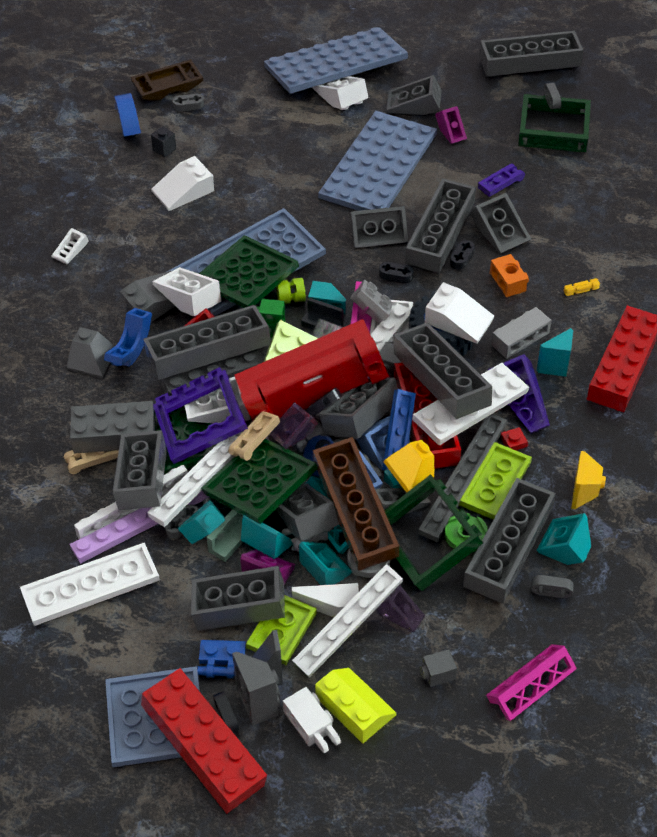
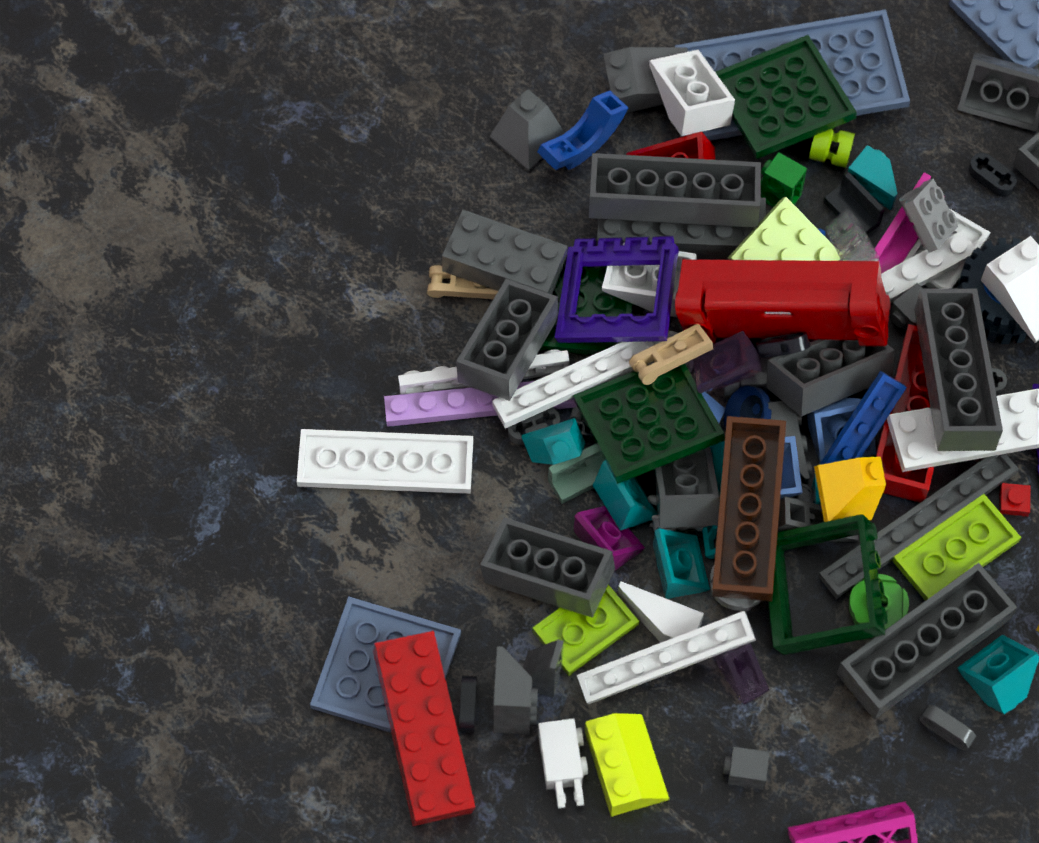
camera: 25 degrees right, 15 degrees up
(219, 653) = (498, 623): blue plate -> none

